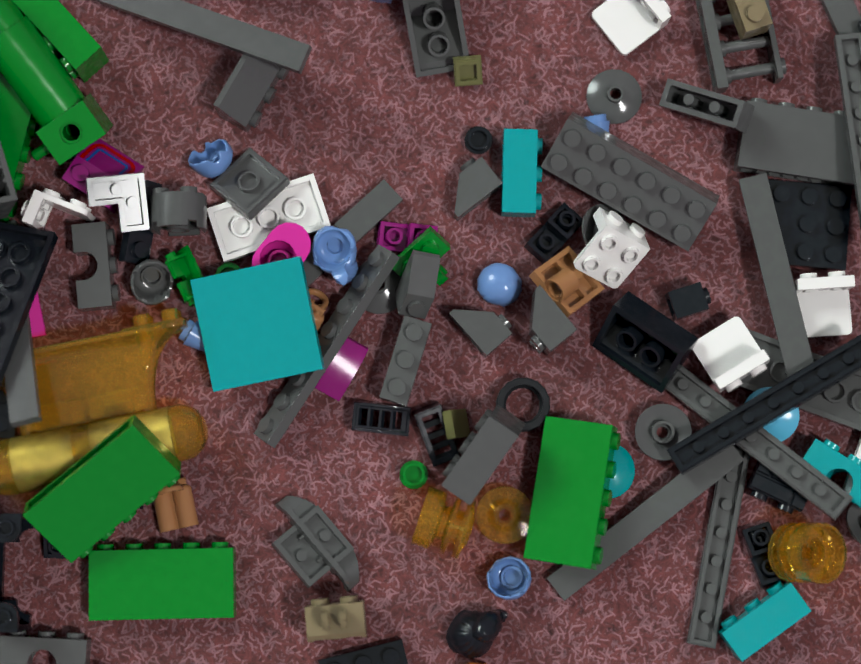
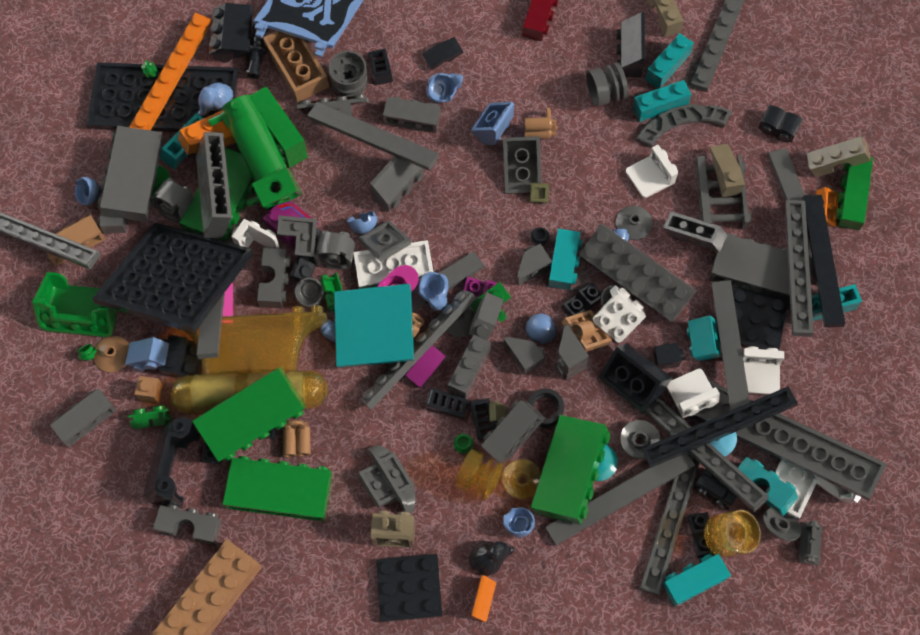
camera: 15 degrees right, 15 degrees down
(737, 268) = (704, 338): none -> teal brick

